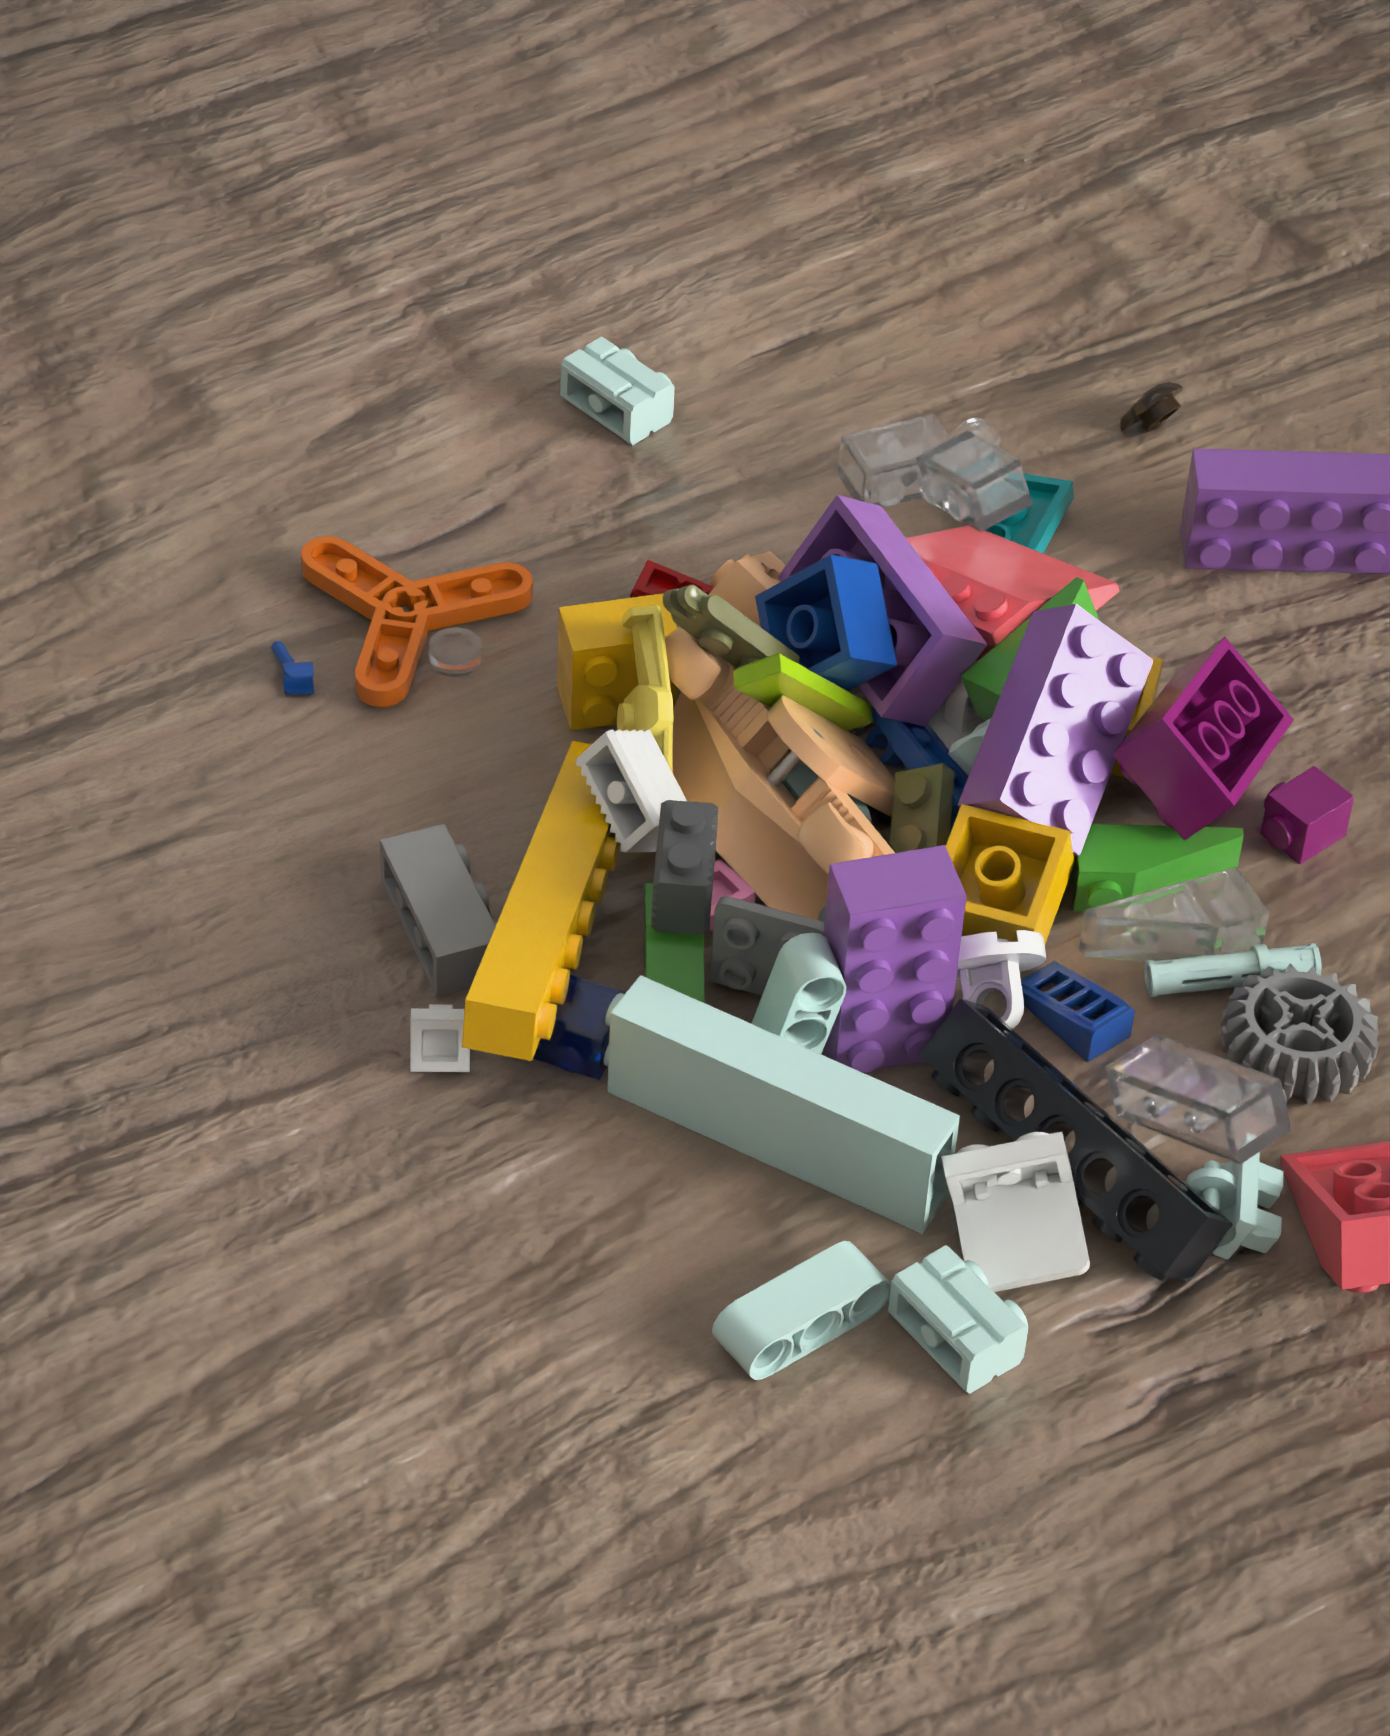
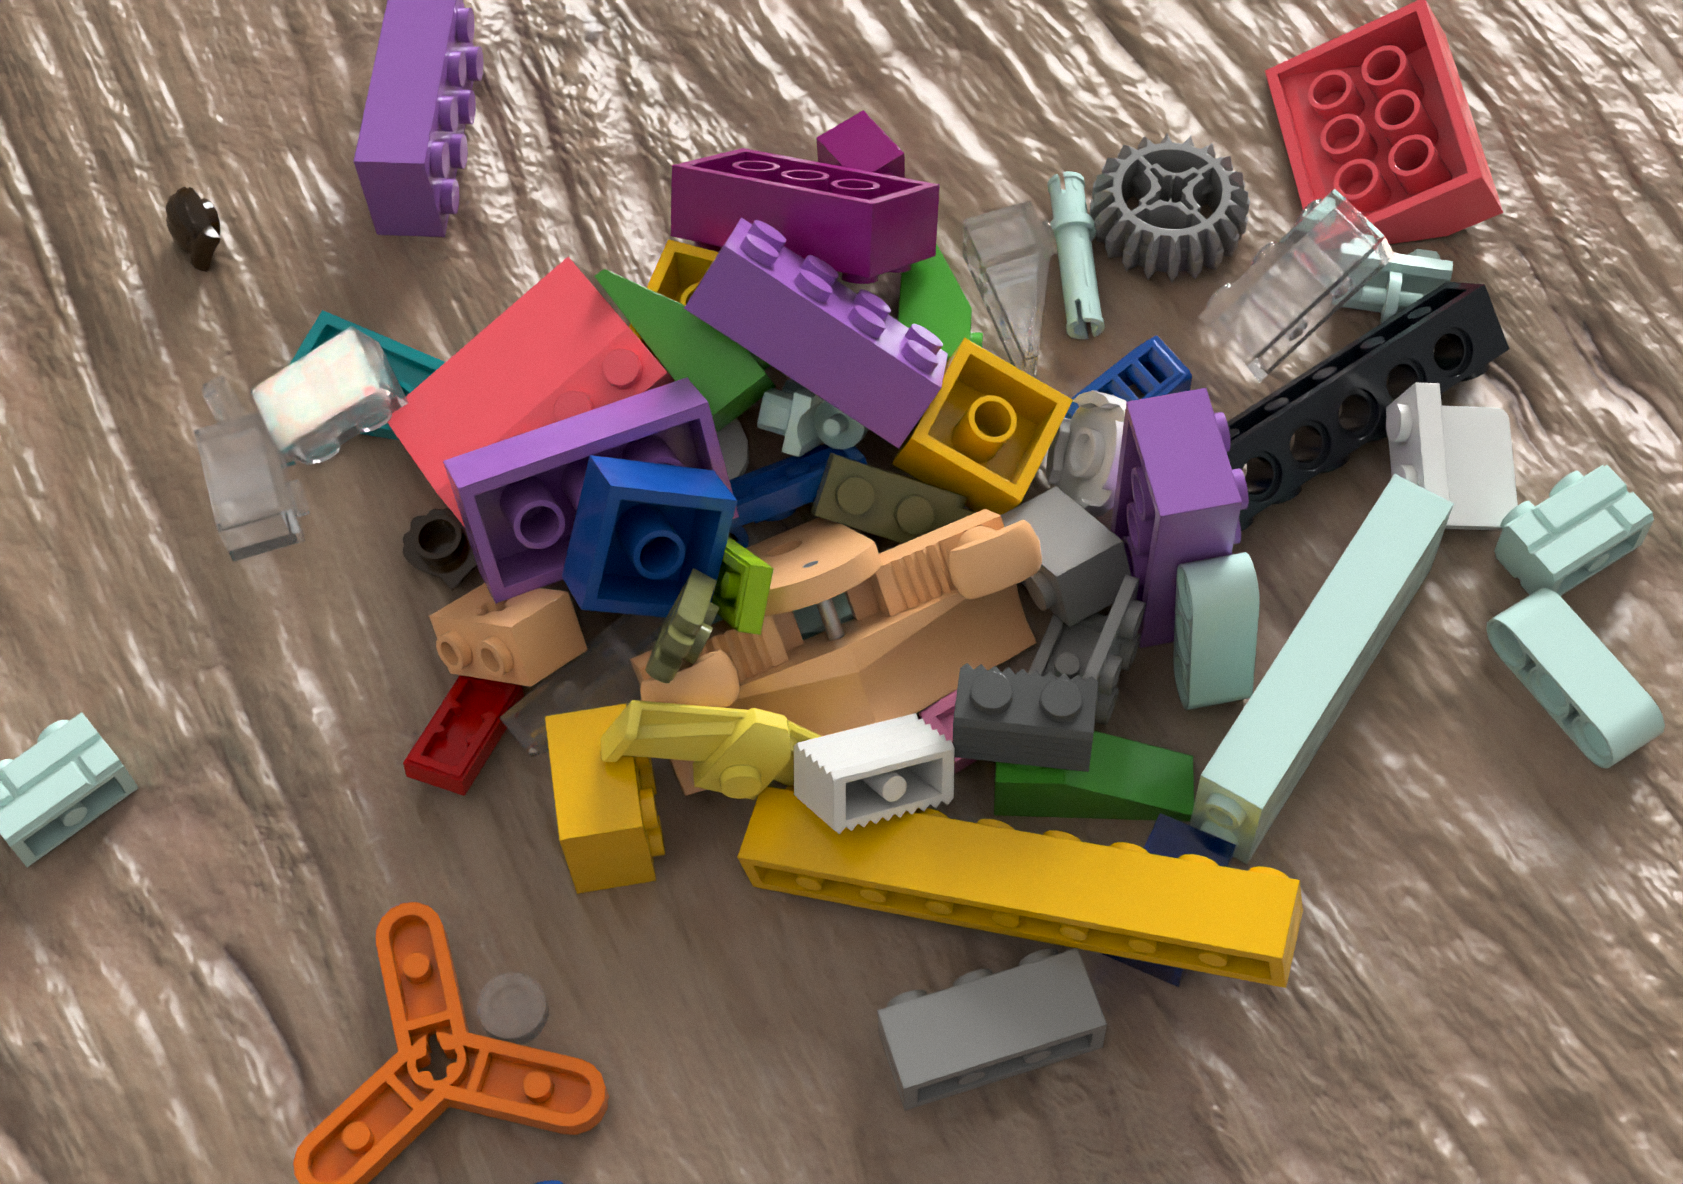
camera: 80 degrees left, 15 degrees up
(438, 1040) = (1200, 1035): white tile -> none

